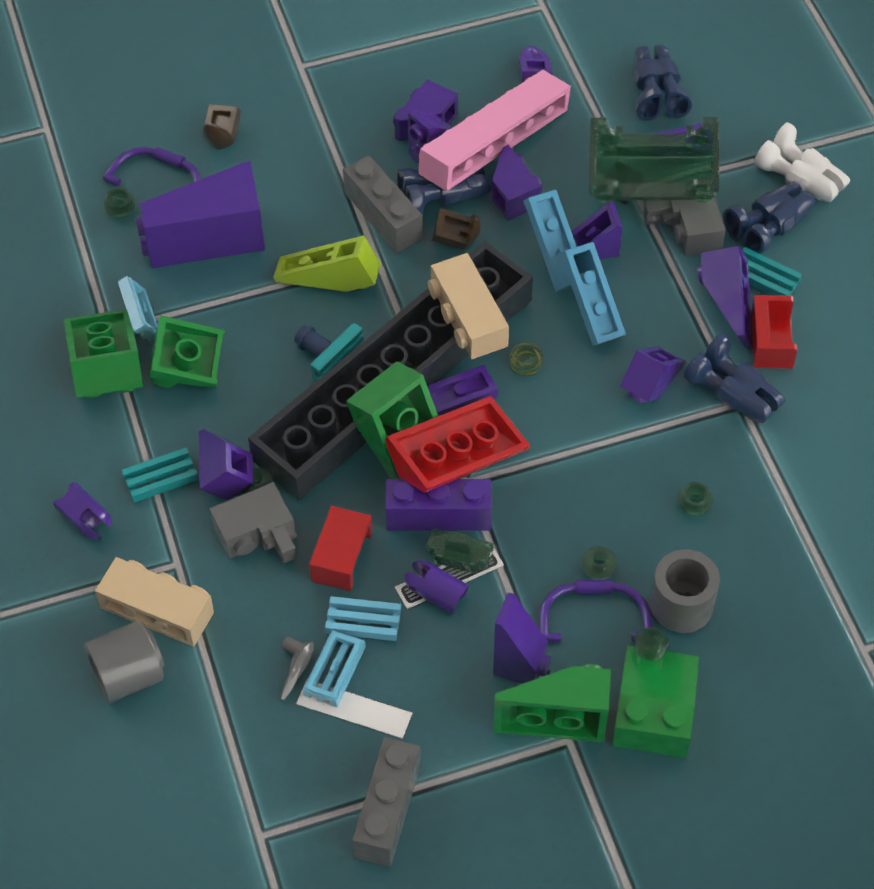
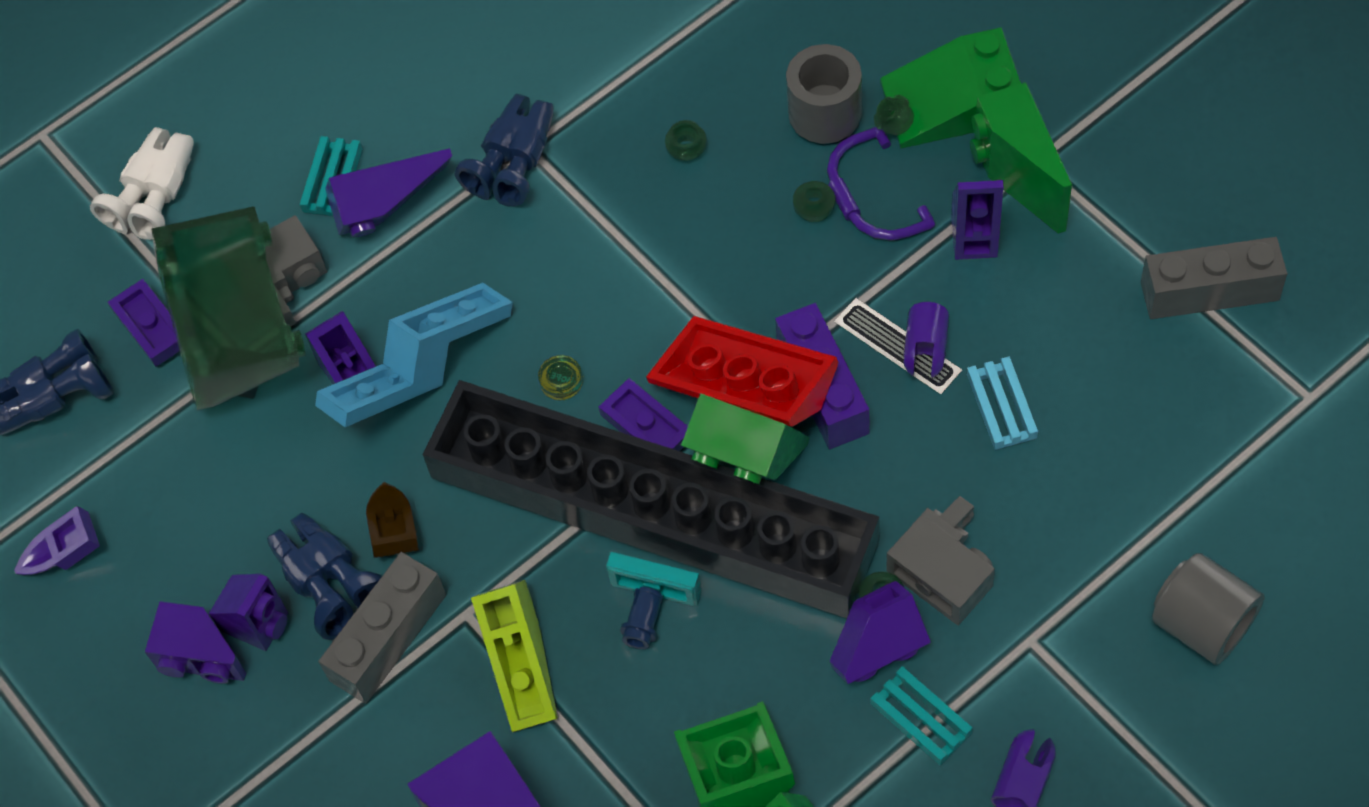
camera: 105 degrees left, 5 degrees up
(155, 600) = (1102, 625): tan brick -> none
(300, 660) = (1094, 441): dark grey bar -> none
(324, 692) = (1079, 421): medium azure tile -> none
(339, 547) = (929, 455): red panel -> none
(362, 712) = (1112, 372): white sticker -> none
(459, 550) = (869, 336): clear green piece -> none
(468, 306) = (548, 416): tan brick -> none
(486, 132) = (214, 527): bright pink brick -> none
(513, 184) = (290, 485): dark purple slope -> none
(651, 373) = (533, 230): dark purple slope -> none
(772, 332) = (425, 136): red panel -> none
(776, 209) = (230, 184): dark blue piece -> none

